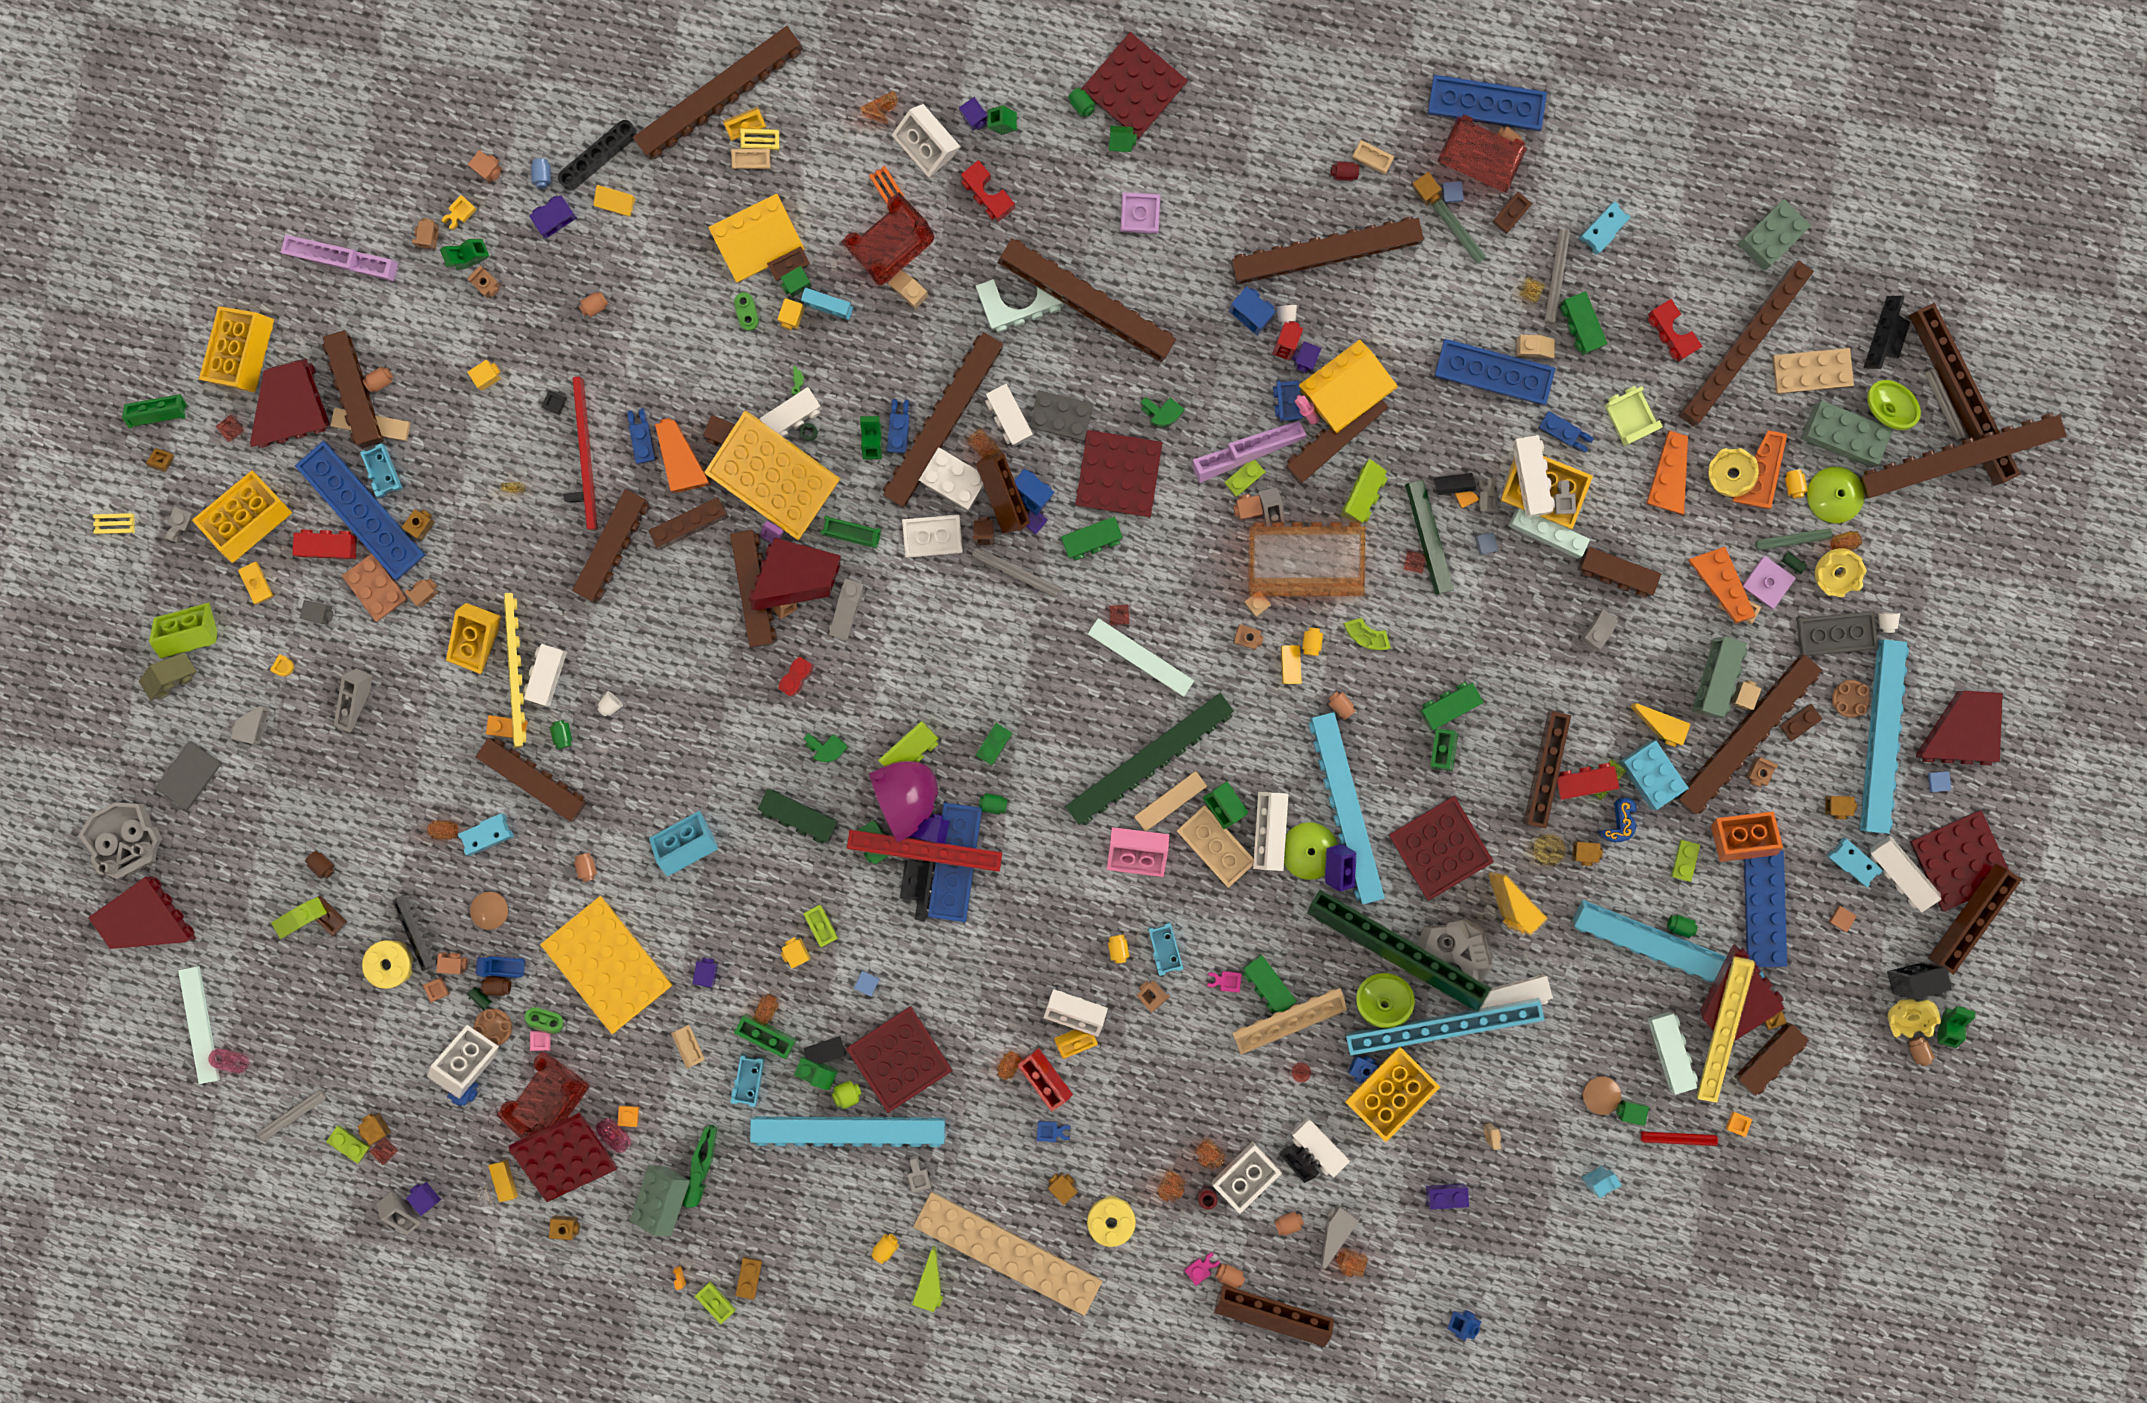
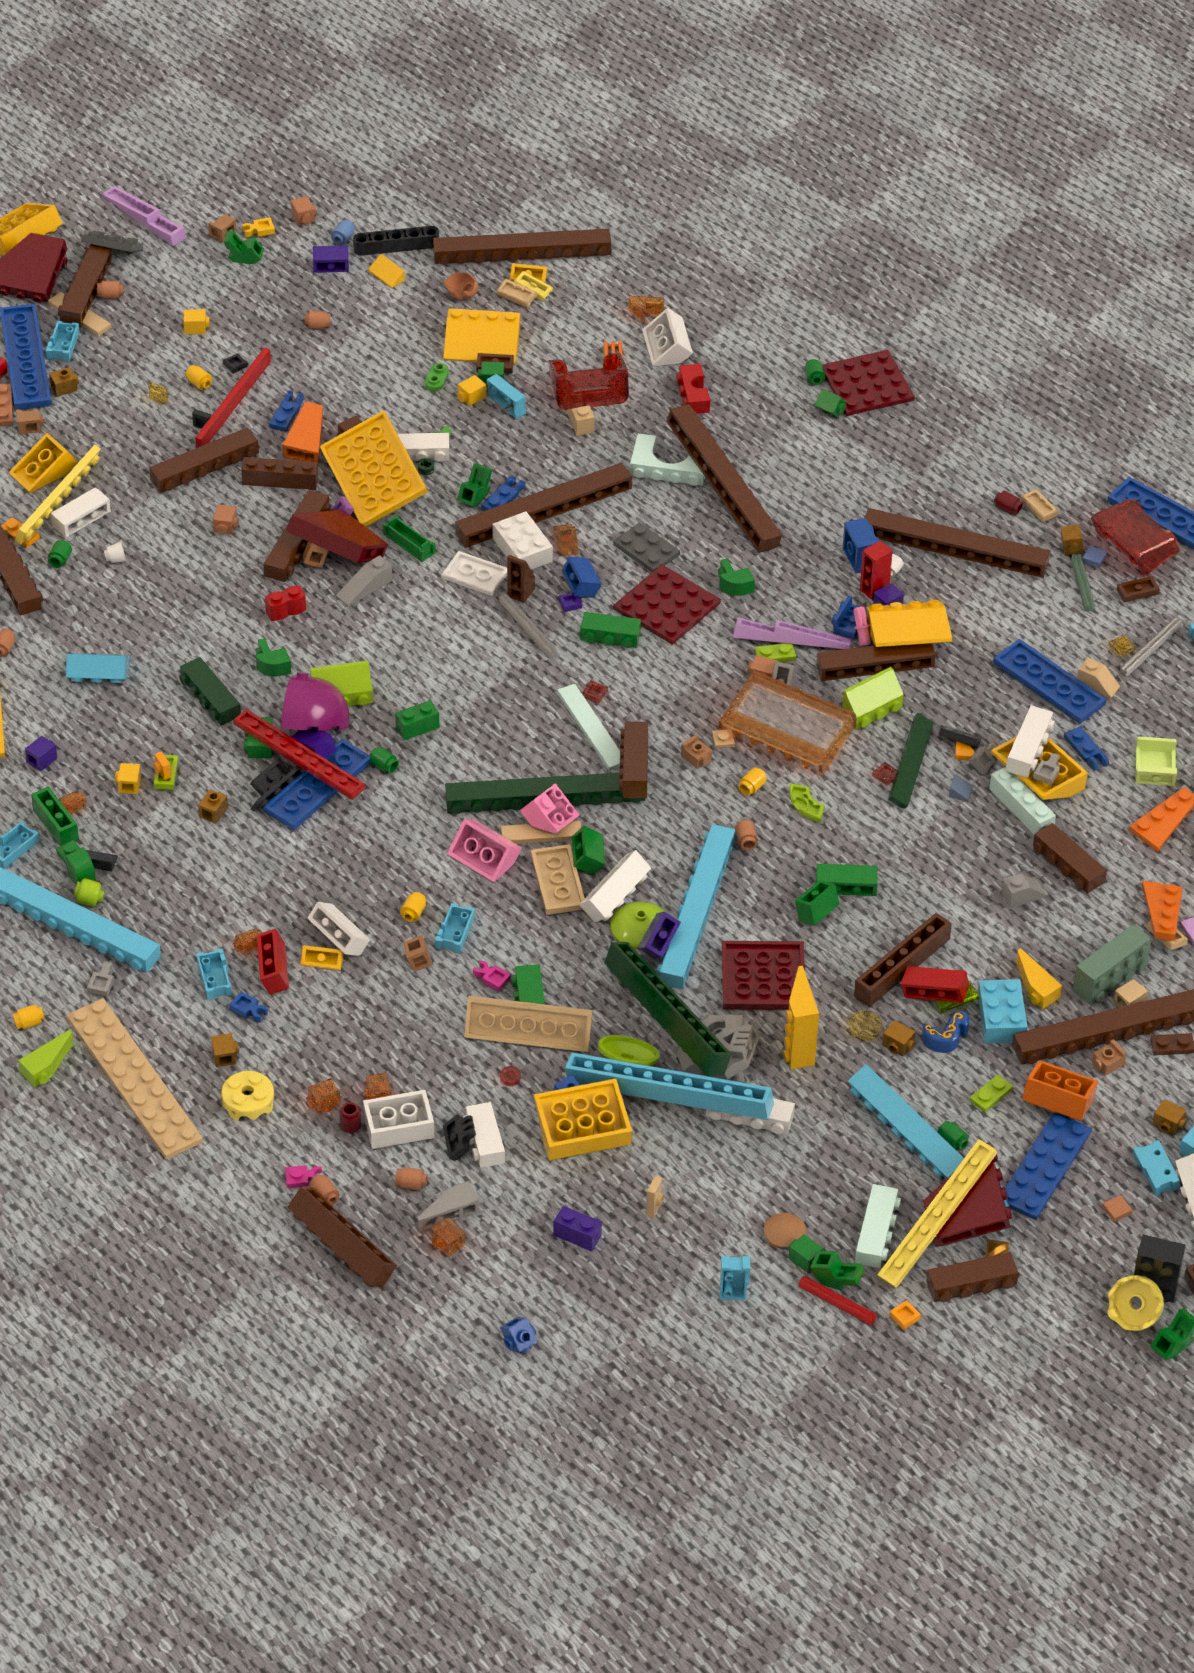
camera: 30 degrees right, 40 degrees down
(339, 319) = (112, 241): none -> dark grey plate
(492, 286) = (243, 271): medium nougat brick -> none
(535, 444) = (198, 377): none -> yellow brick
(677, 607) = (225, 519): none -> nougat brick
(697, 182) = (461, 286): none -> nougat hair
(818, 932) = (162, 765): none -> light orange plate
(866, 983) = (171, 830): medium blue tile -> none
(885, 940) = (213, 806): none -> pearl gold brick
(899, 1059) = (155, 892): dark red plate -> none
(973, 114) = (719, 341): dark purple brick -> none
(1002, 120) = (739, 351): green brick -> none
(1002, 493) = (556, 558): reddish brown brick -> none
(1003, 1114) = (214, 973): none -> medium azure piece
(1008, 415) = (601, 525): white brick -> none
(1140, 213) = (812, 455): lavender plate -> none
(1169, 783) = (550, 811): none -> bright pink slope
(1210, 689) = (634, 760): none -> reddish brown brick
(1291, 664) = (721, 789): yellow slope -> none
(1583, 323) = (1151, 682): green brick -> none
(1666, 1118) = (833, 1273): none -> green brick
(1921, 1051) = (1128, 1344): medium nougat brick -> none

